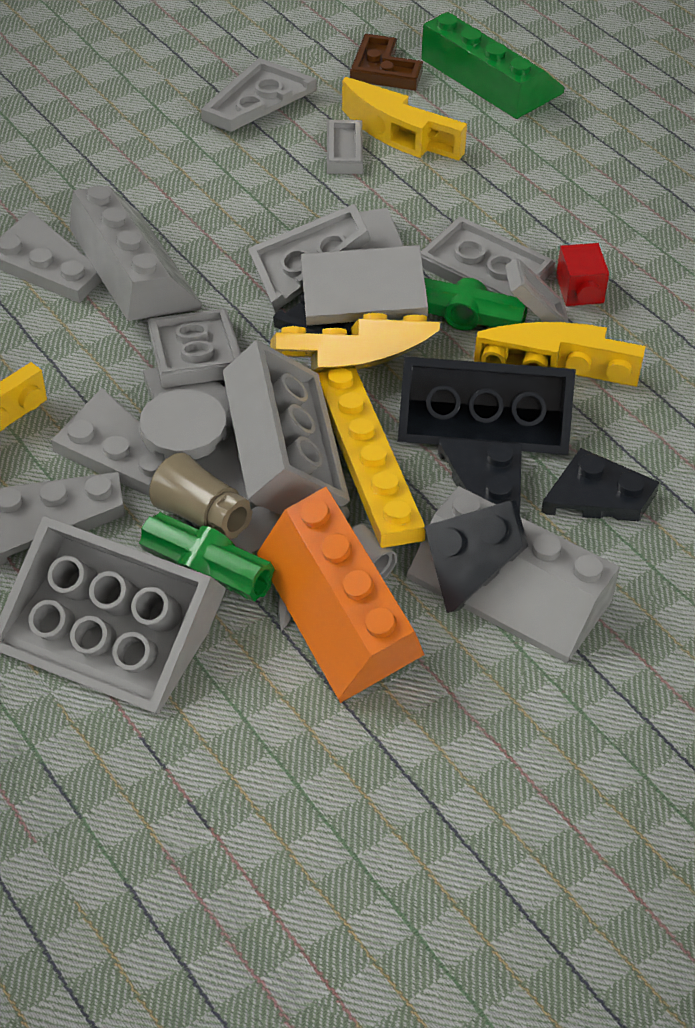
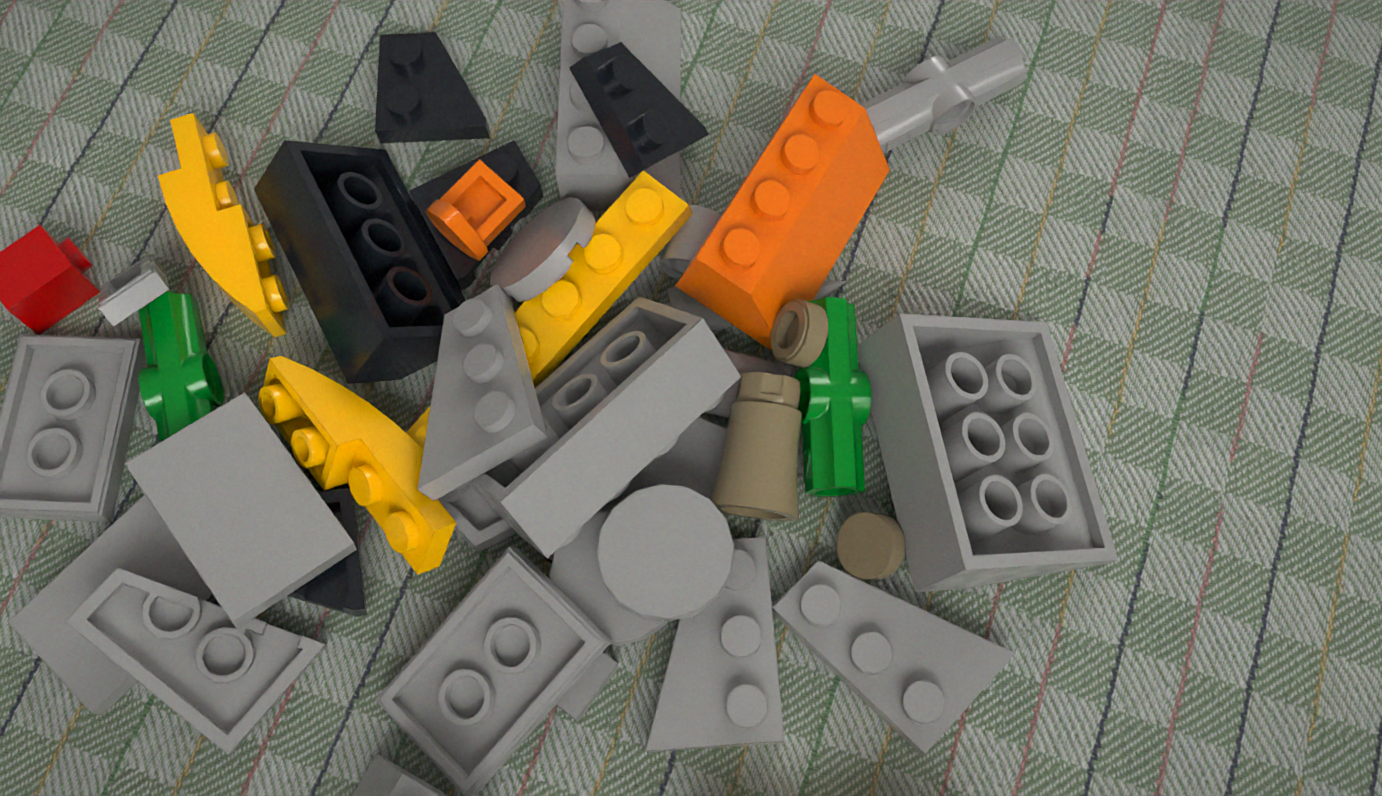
camera: 120 degrees left, 20 degrees up
(108, 527) = (870, 545): none -> dark tan tile
(249, 539) = (799, 333): none -> dark tan tile
(341, 387) = (481, 396): none -> light grey wing
(367, 756) = (945, 93): none -> light grey piece
(417, 469) = (541, 249): none -> light grey tile
(471, 449) = (475, 210): none -> orange tile

